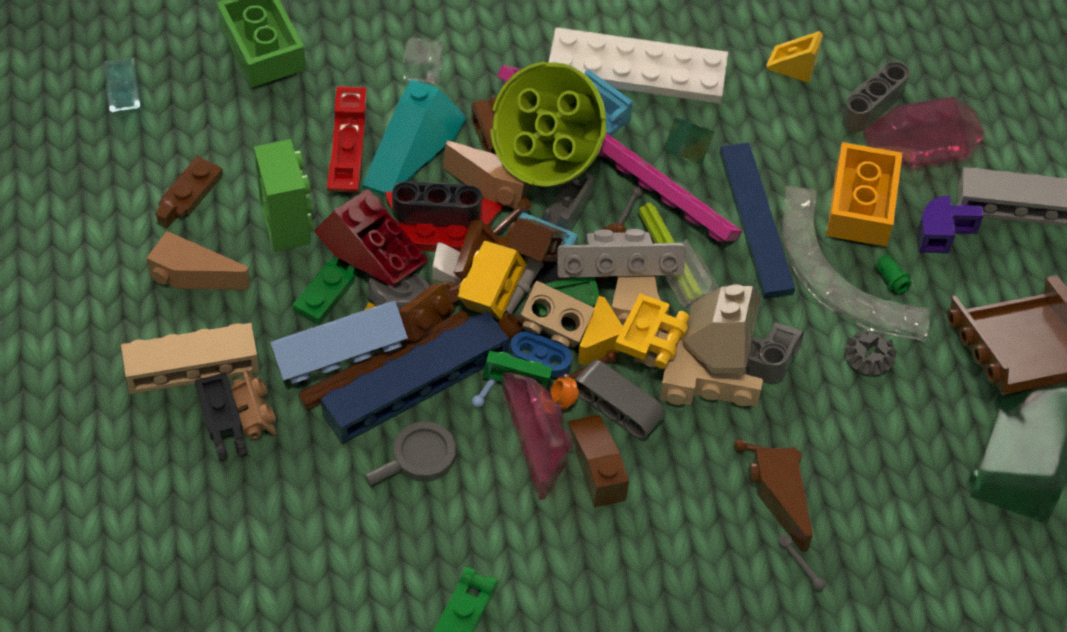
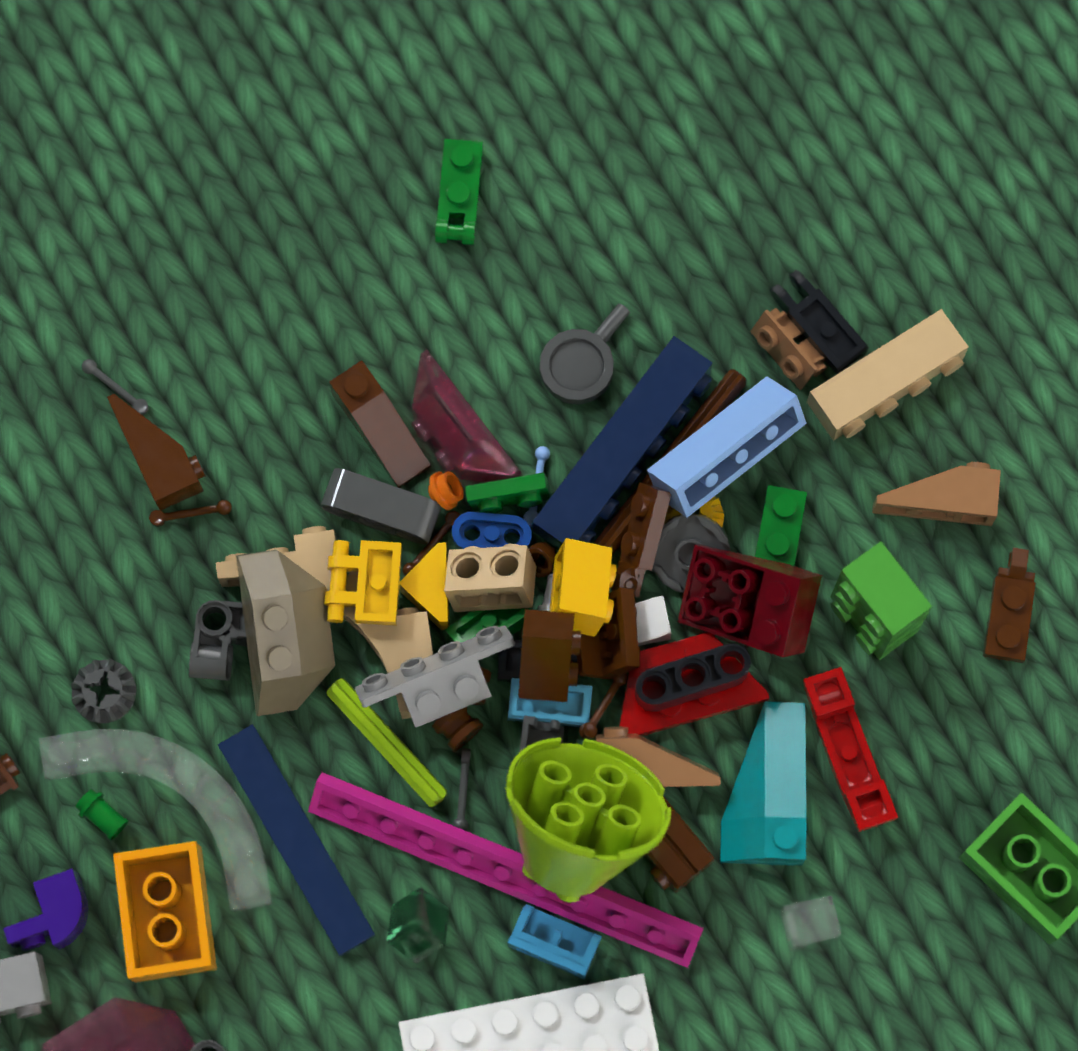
camera: 165 degrees right, 20 degrees up
(695, 281) = (341, 715): clear panel -> none

